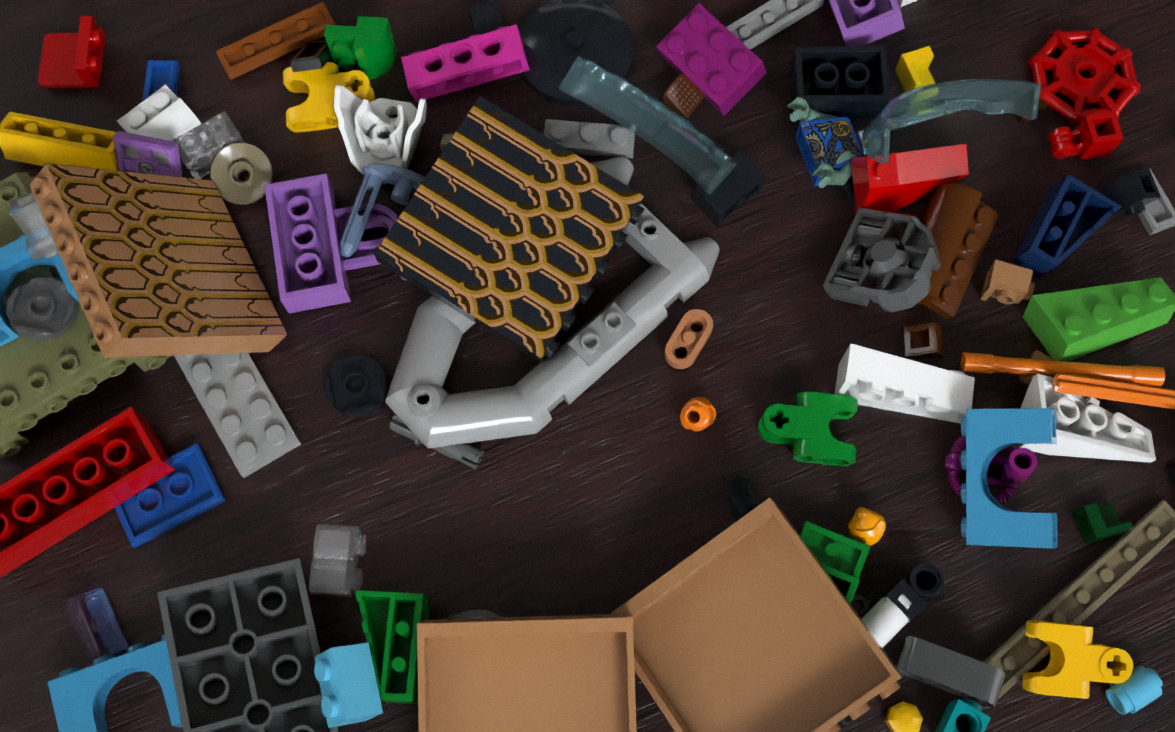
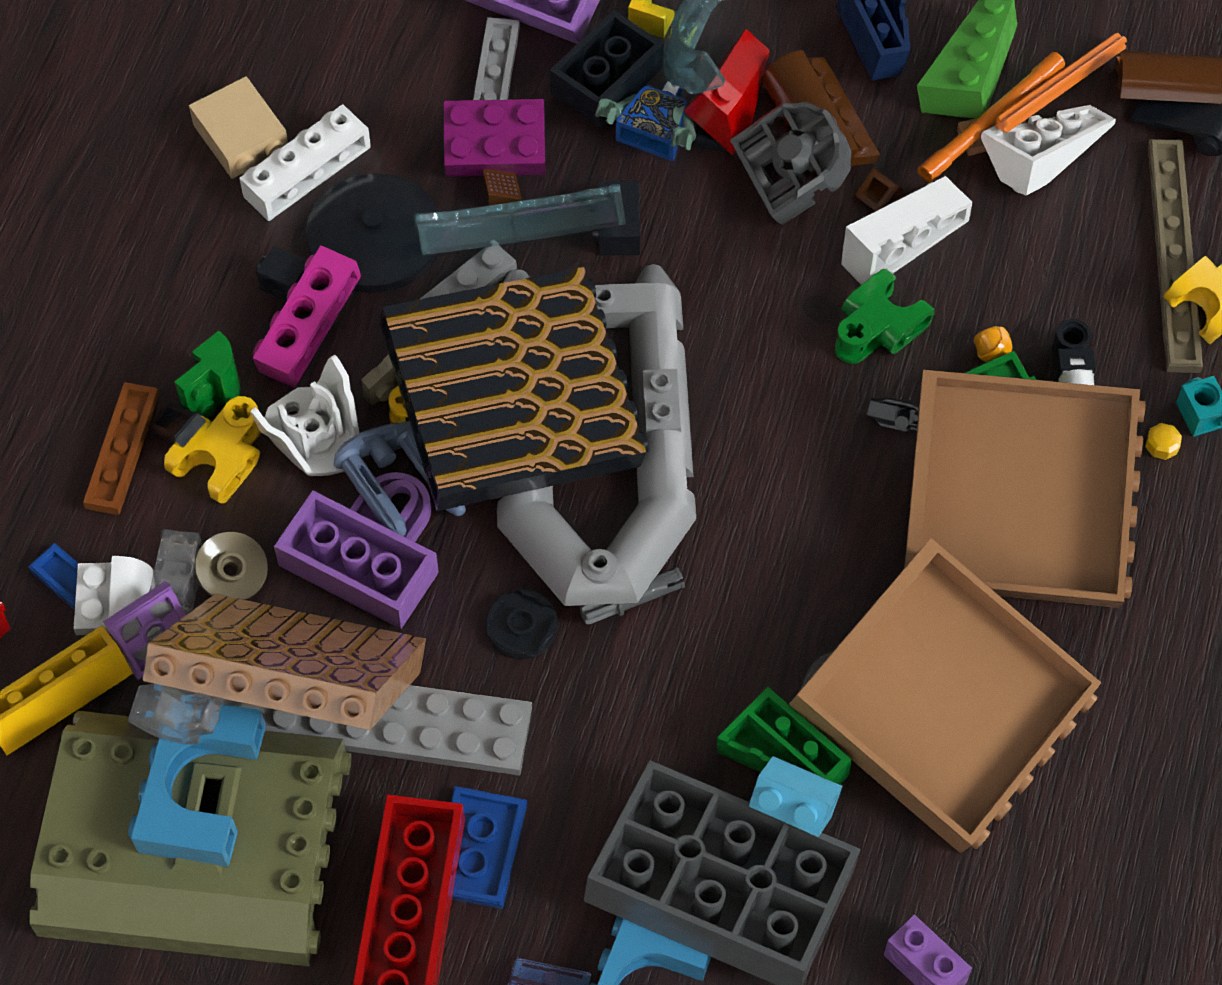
camera: 50 degrees left, 10 degrees down
(42, 309) = (236, 787): flat silver tile -> none
(336, 560) = (667, 742): clear brick -> none
(688, 340) = (723, 349): nougat plate -> none
(697, 414) = (800, 388): orange piece -> none
(950, 671) = (1162, 371): dark grey beam -> none
(986, 519) = (1063, 258): dark azure arch -> none
(1007, 283) = (887, 97): medium nougat brick -> none
(1014, 469) = (1038, 211): magenta piece -> none
(1099, 522) = (1128, 194): dark green panel -> none

